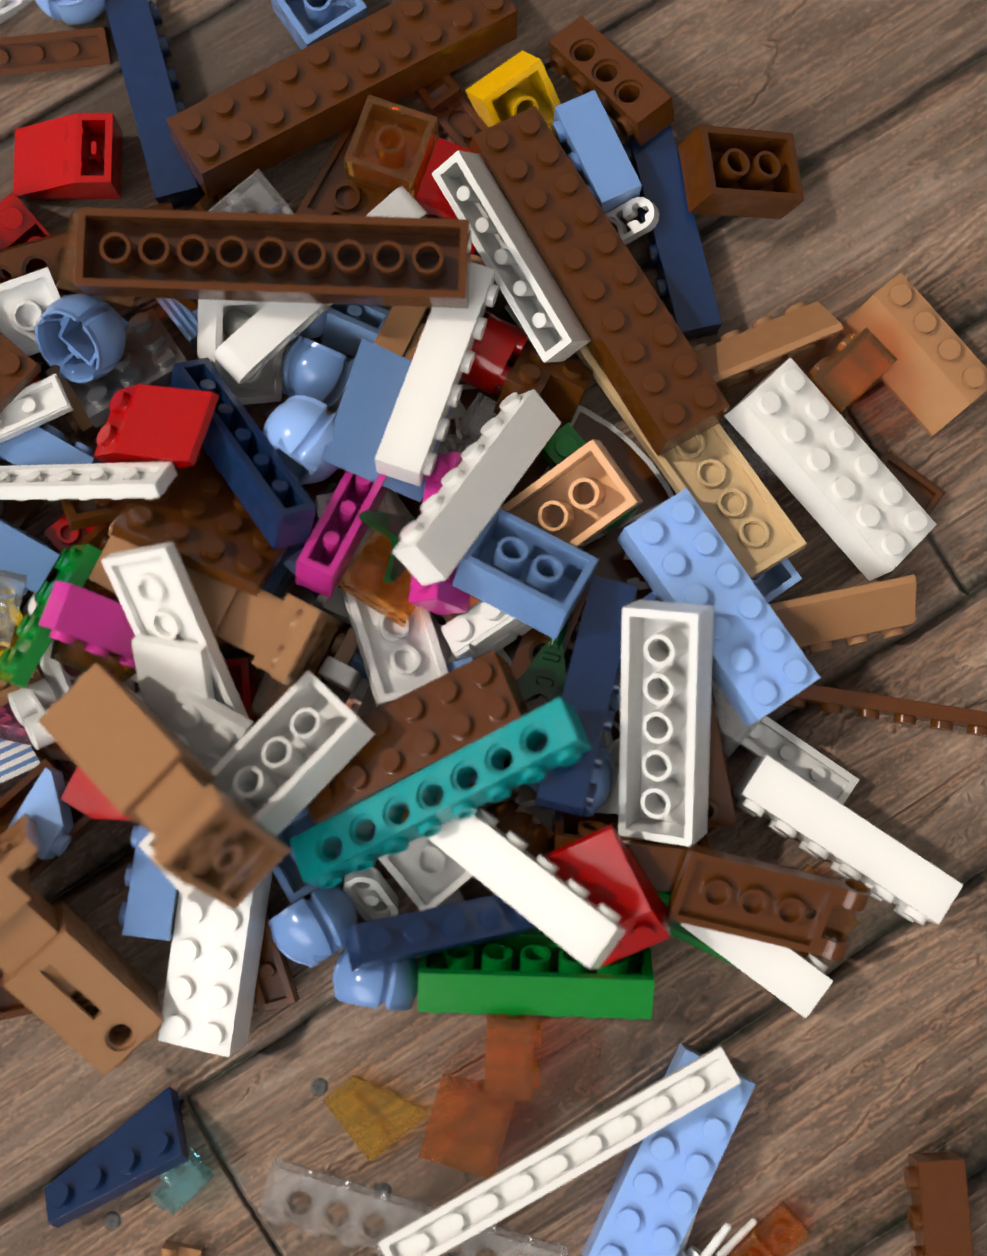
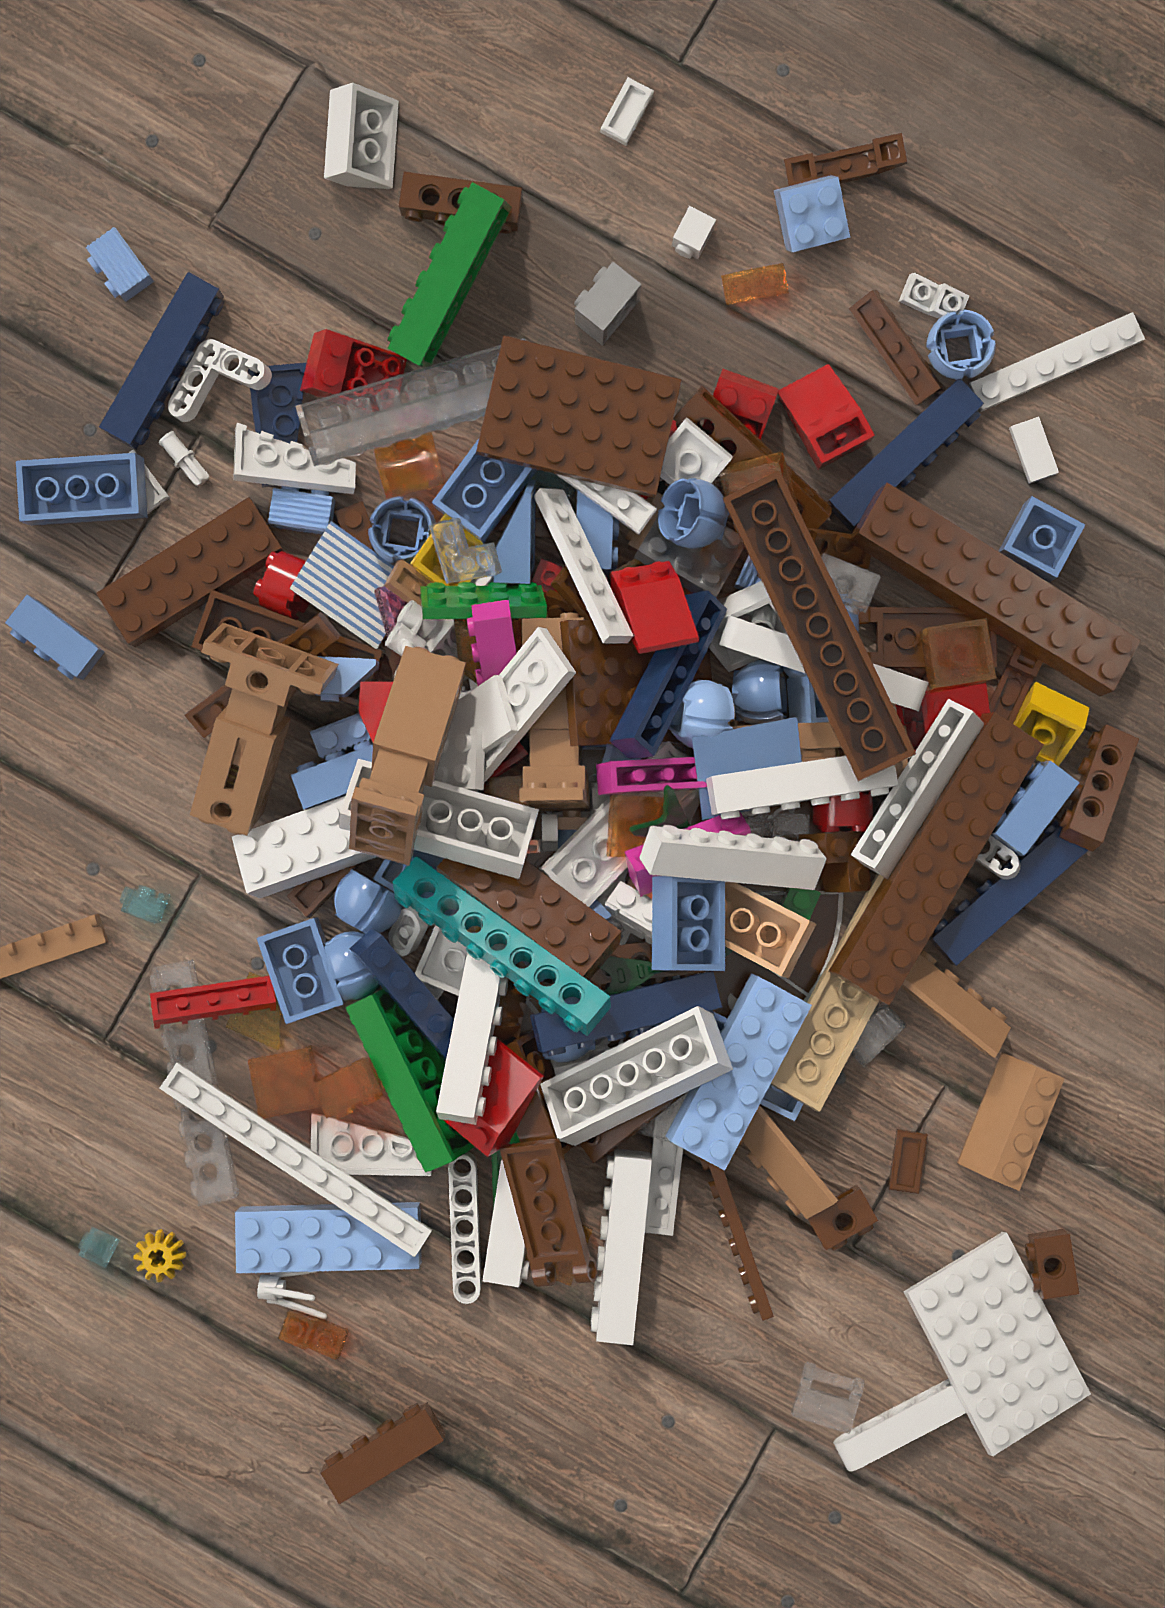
camera: 60 degrees right, 5 degrees up
(113, 855) = (340, 735): none -> light blue brick
(127, 1158) = (141, 858): dark blue wing -> none
(330, 1163) = (212, 1001): none -> red hinge
(350, 1041) = (300, 970): none -> medium blue brick
(588, 1076) = (363, 1149): none -> white wing
(740, 172) = (1078, 921): reddish brown brick -> none
(748, 1018) = (462, 1241): none -> white beam
(830, 470) = (886, 1101): white brick -> none
(851, 369) = (965, 1079): clear orange brick -> none
(945, 569) = (861, 1219): none -> reddish brown brick

